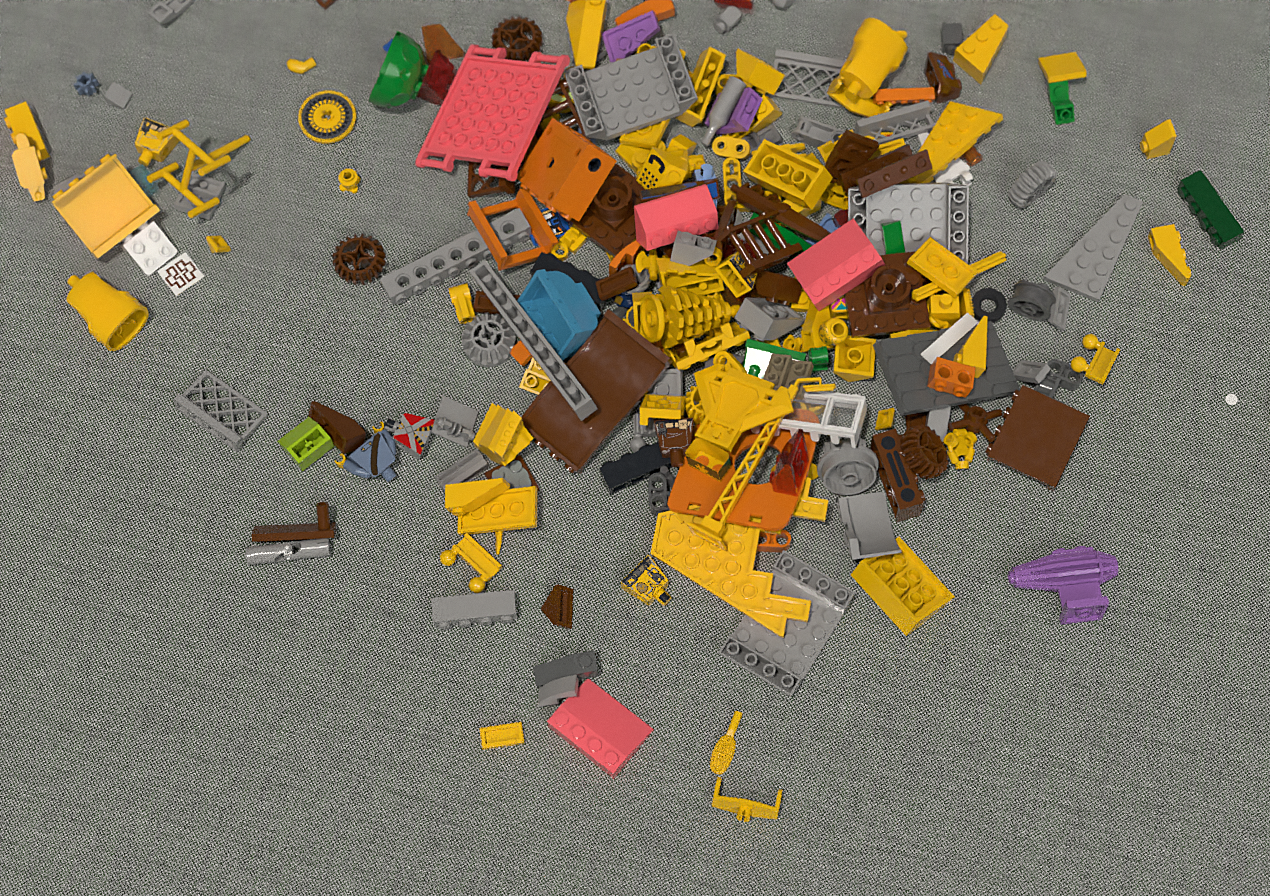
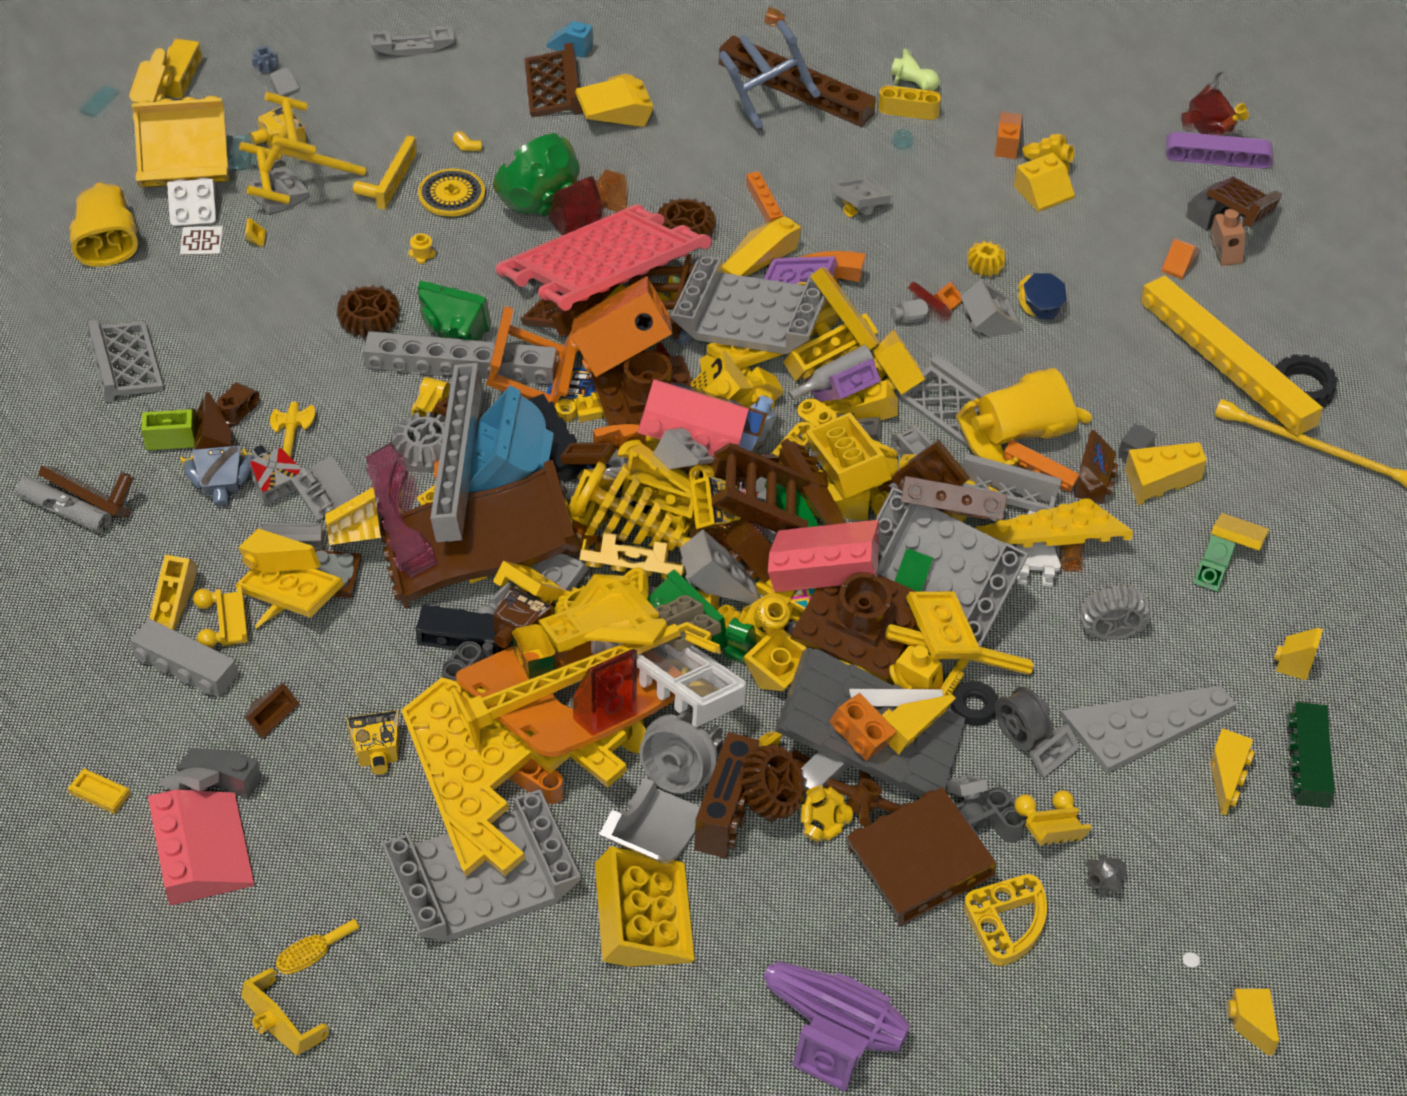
camera: 30 degrees right, 20 degrees down
(280, 149) = (389, 184): none -> yellow piece
(334, 393) = (237, 403): none -> reddish brown piece
(381, 381) = (290, 421): none -> yellow piece
(424, 569) = (173, 590): none -> yellow slope
(425, 227) = (453, 311): none -> green piece
(496, 385) = (388, 474): none -> clear pink arch
(700, 55) = (845, 308): none -> yellow slope
(1099, 448) = (989, 914): none -> yellow beam
(1150, 376) = (1106, 874): none -> flat silver rock

